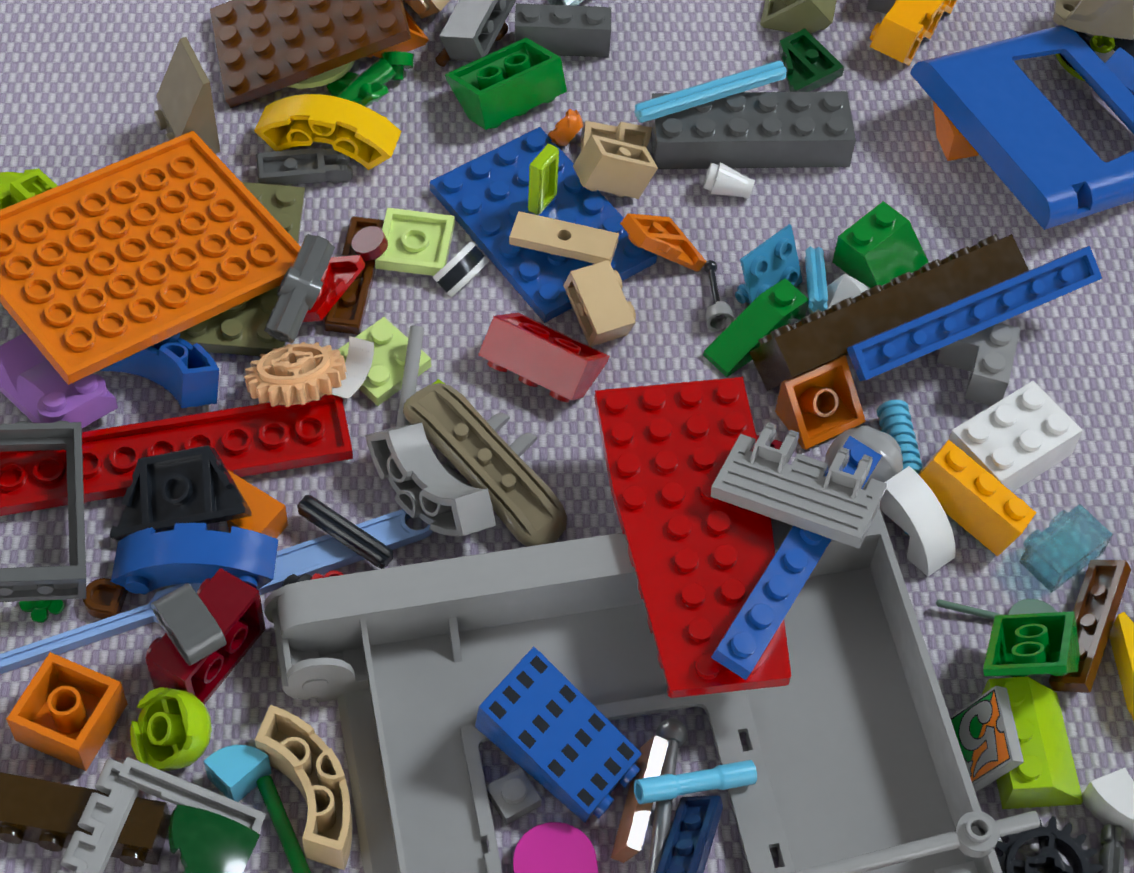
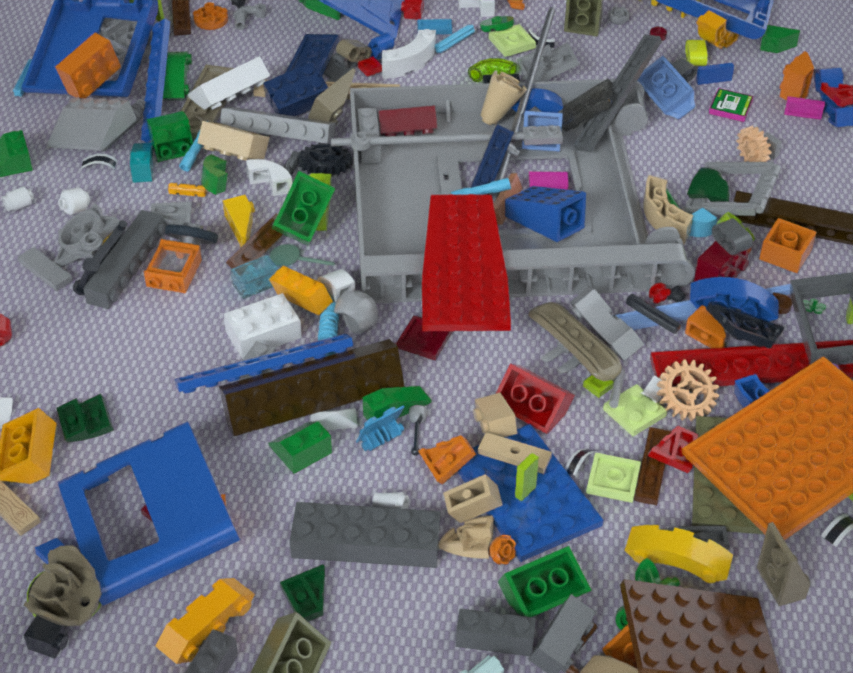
camera: 170 degrees left, 10 degrees down
(299, 288) = (689, 424): dark grey piece -> none
(369, 243) = (645, 467): tile -> none
(710, 91) = (394, 532): medium azure axle -> none
(779, 586) = (411, 239): blue plate -> none
(800, 491) = (408, 252): light grey hinge -> none
(816, 279) = (350, 423): medium azure axle -> none
(988, 737) = (340, 199): tile -> none

